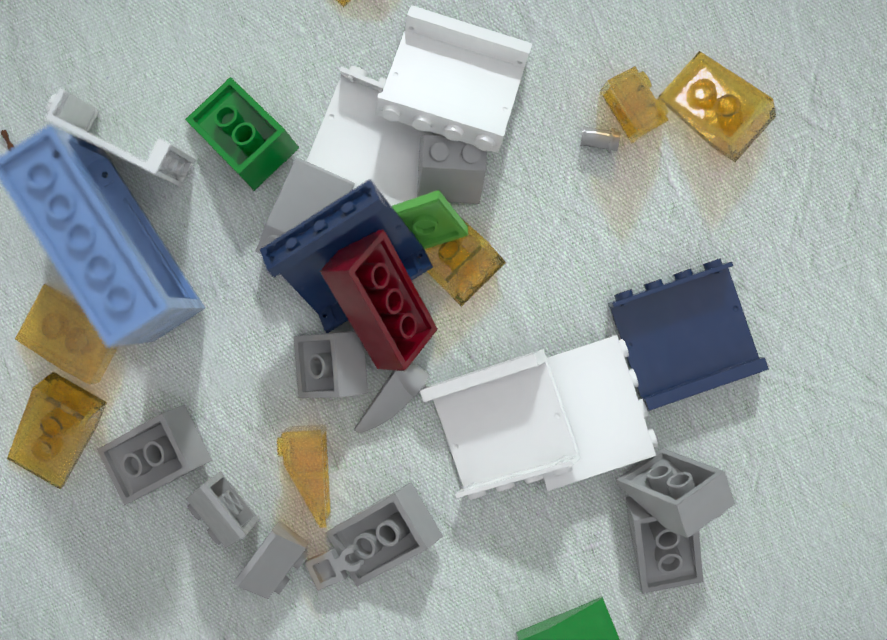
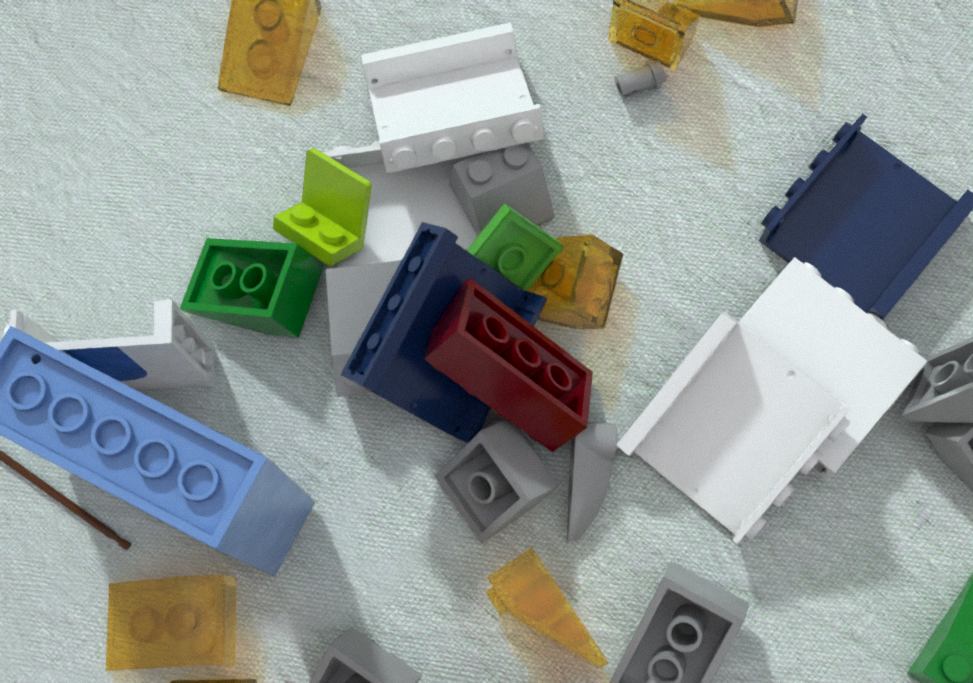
camera: 25 degrees left, 15 degrees down
(319, 116) = (332, 210): none -> lime bracket

